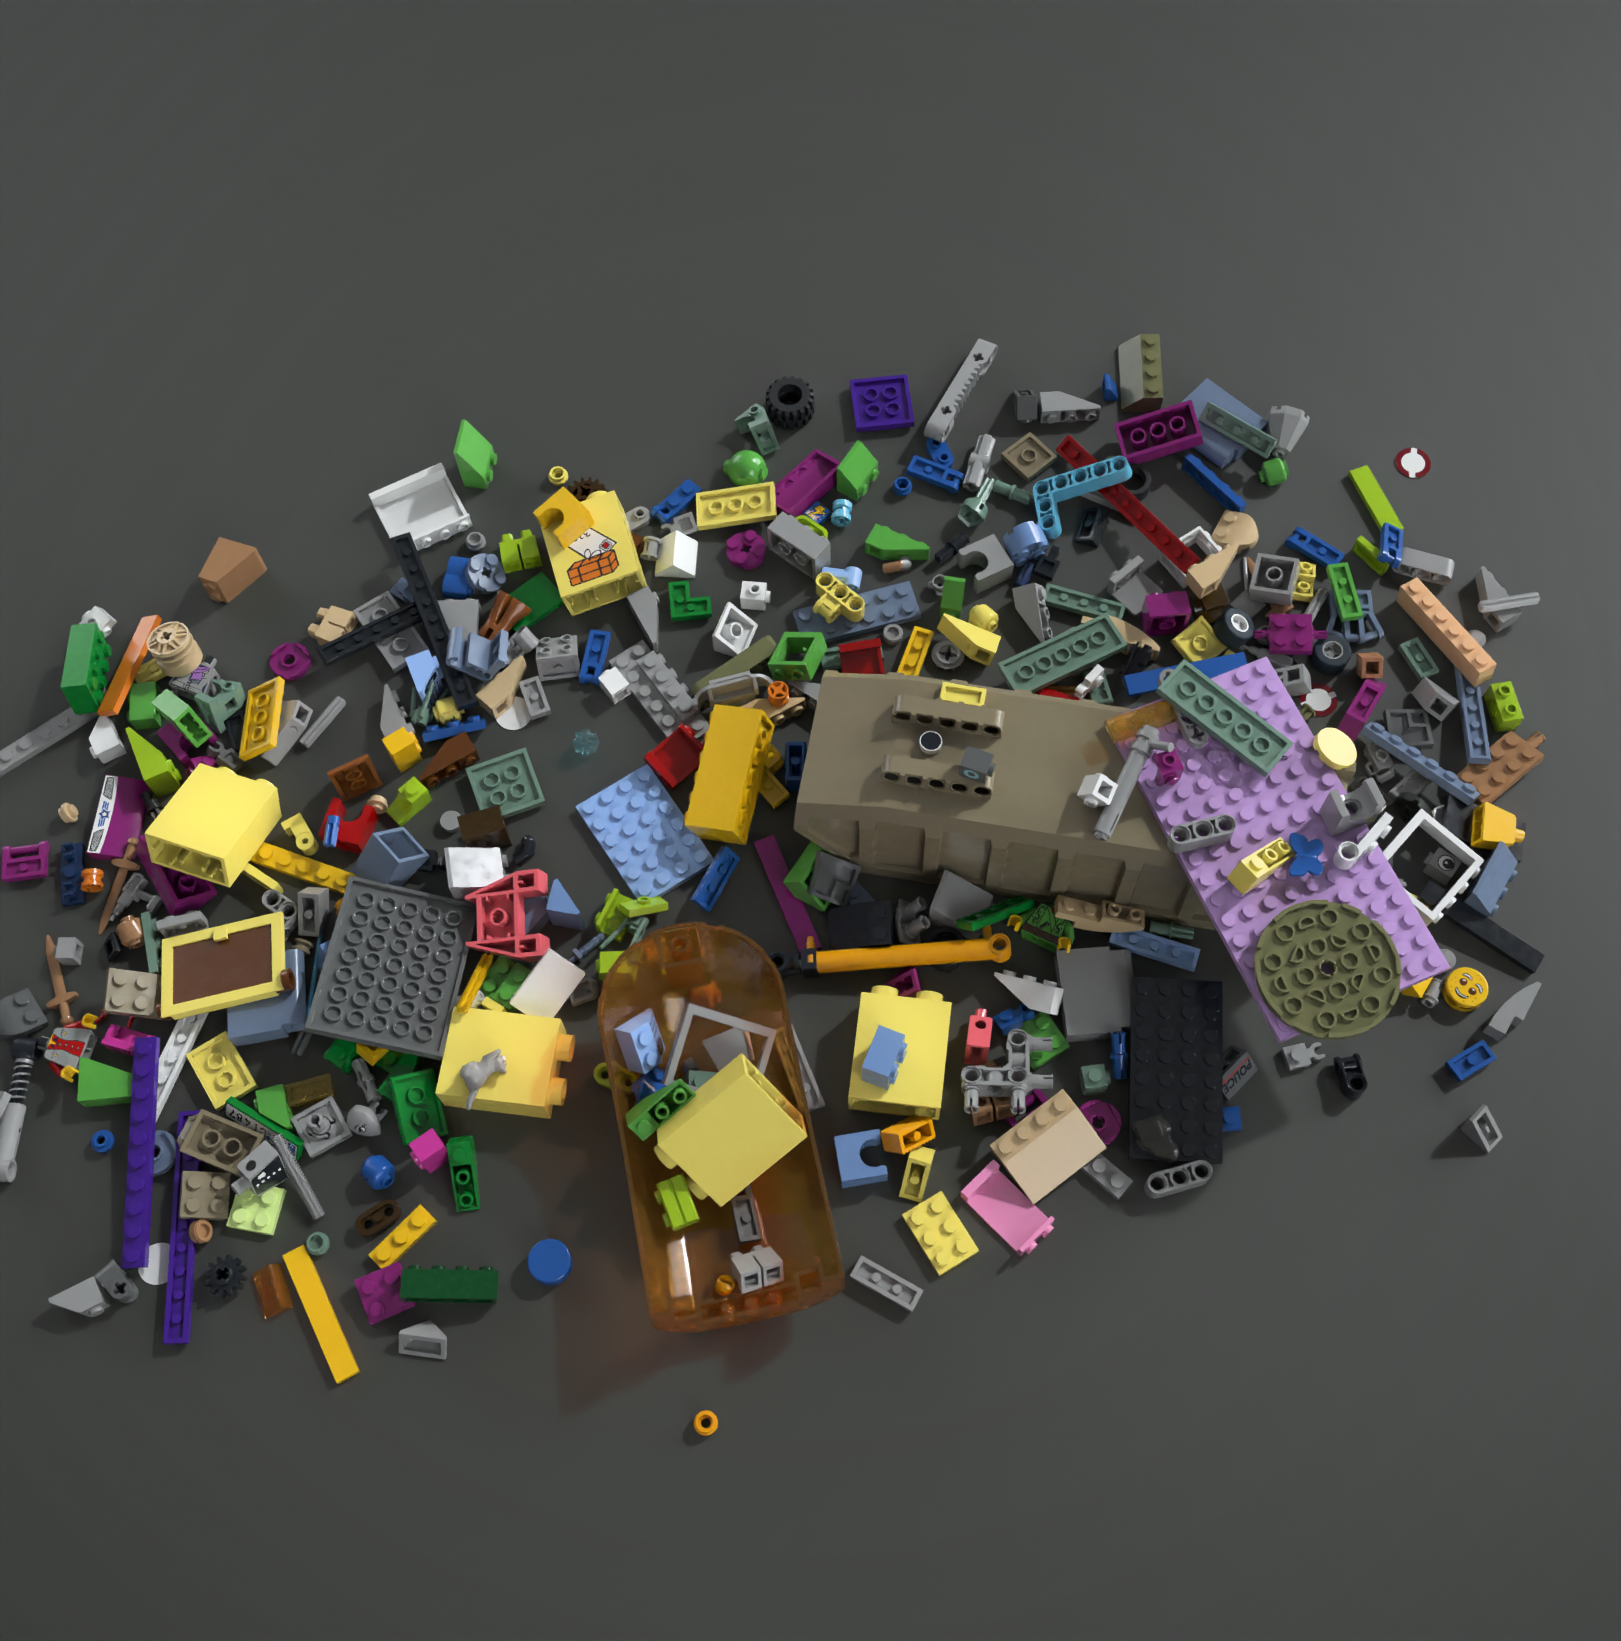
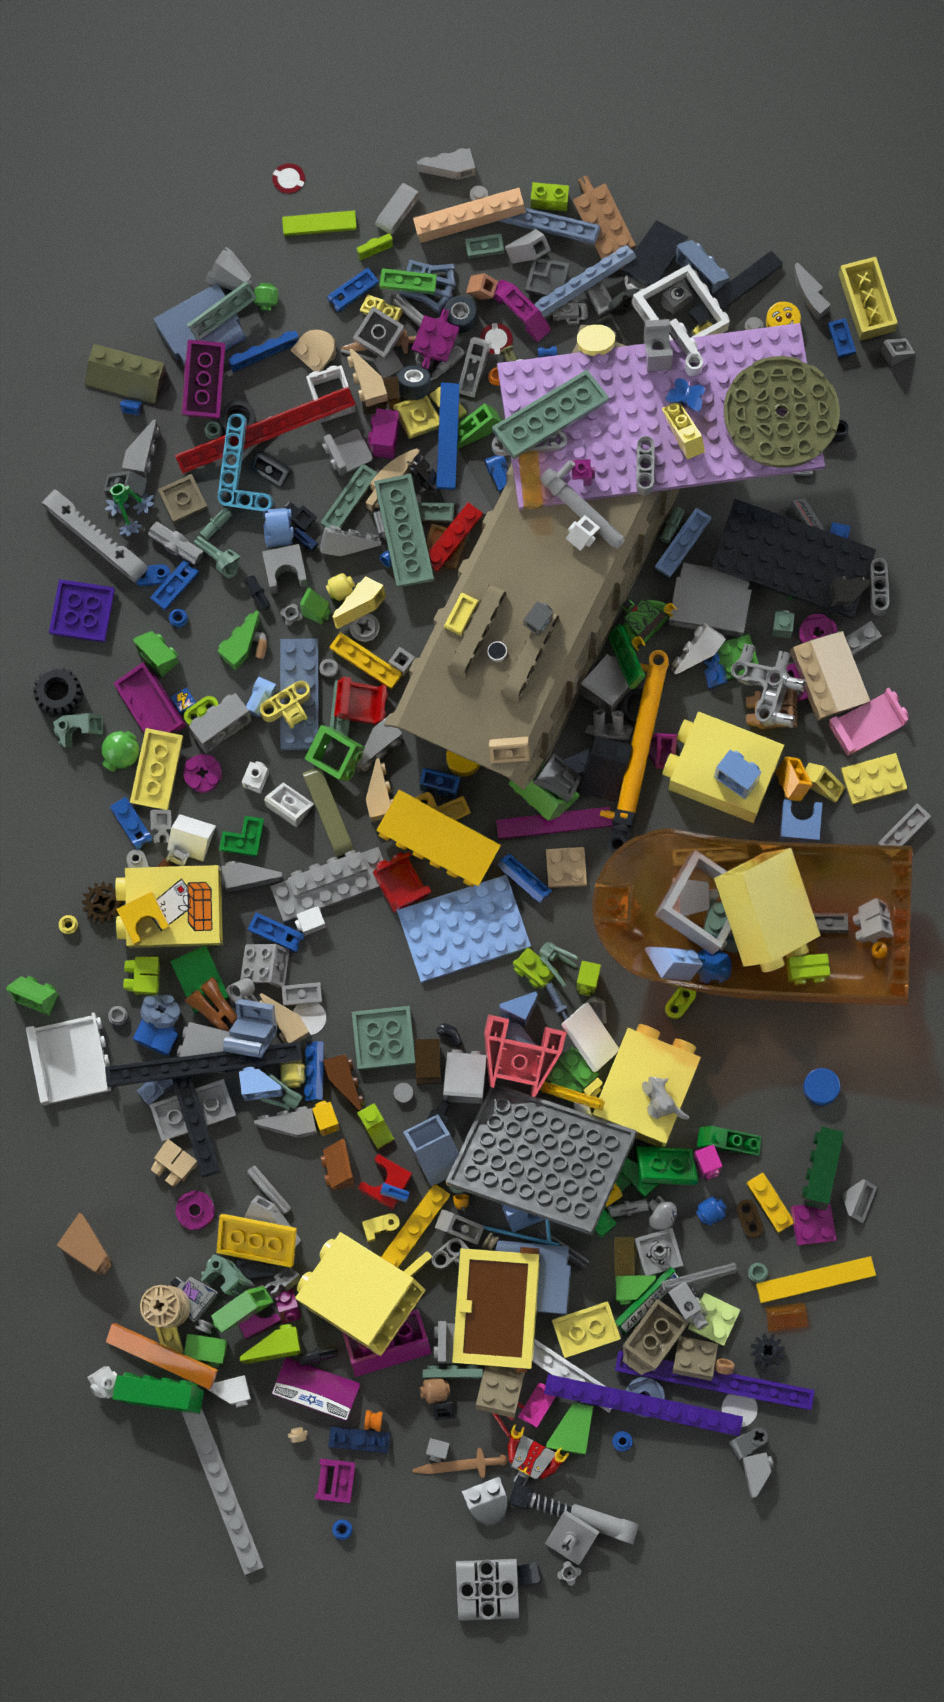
camera: 75 degrees left, 10 degrees up
(124, 865) = (367, 1389): medium nougat sword -> none
(134, 891) = (394, 1387): light grey piece -> none
(378, 802) = (369, 1154): tan plate -> none
(586, 742) = (362, 957): clear light blue gear -> none
(643, 906) = (536, 942): lime plate -> none
(658, 1108) = (735, 960): bright green slope -> none
(732, 690) = (354, 817): light grey plate -> none
(742, 915) = (566, 867): none -> tan plate
(778, 688) = (372, 775): orange wheel -> none
(825, 789) = (509, 750): none -> tan slope
(841, 515) = (191, 678): medium azure wheel -> none
(978, 1038) = (725, 702): coral torso -> none
(1006, 394) = (120, 496): none -> plant
(1092, 680) = (432, 513): white plate -> none
(1100, 918) = (649, 575): tan slope -> none
(1119, 1055) = (769, 598): blue pin -> none
(1390, 545) = (374, 227): blue plate -> none
(1494, 825) = (660, 246): yellow torso -> none
(1508, 602) = (459, 155): light grey axle -> none
(1531, 1076) = (868, 298): none -> light yellow brick

